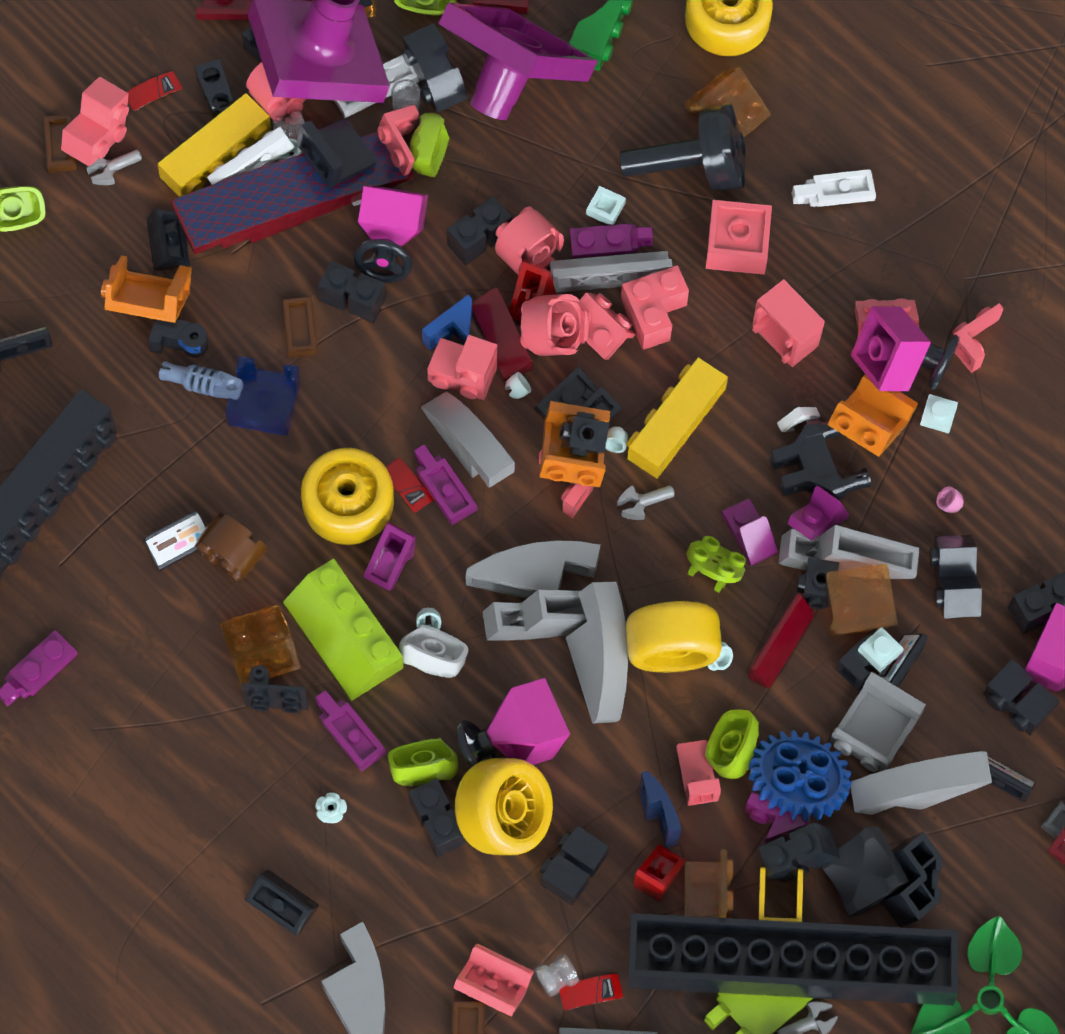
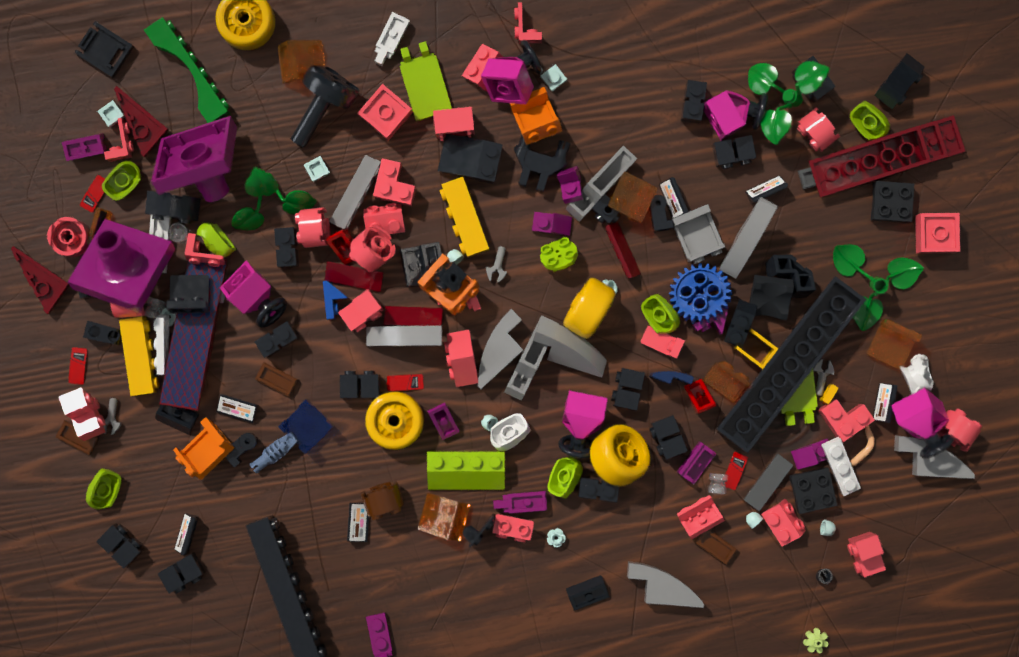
camera: 55 degrees left, 20 degrees up
(228, 302) = (237, 408): none -> slope
(307, 736) = (513, 527): none -> coral bracket
(358, 420) = (350, 385): none -> black piece
(444, 486) = (420, 365): magenta hinge -> none
(488, 525) = (461, 358): none -> coral brick
(496, 423) = (413, 316): none -> dark red slope
(518, 385) = (389, 287): light aqua hinge -> none
(540, 132) = (265, 184): none -> green plant
(565, 928) = (696, 462): none -> magenta hinge
(608, 240) = (337, 181): magenta hinge -> none
(616, 762) = (630, 379): none -> black piece
(759, 378) = (470, 158): none -> black slope
(797, 416) = (508, 153): white tile -> none
(814, 258) = (424, 83): none -> lime tile
(880, 649) = (664, 205): light aqua plate -> none
(950, 500) = (605, 108): bright pink hinge -> none
(955, 574) = (652, 138): brick -> none

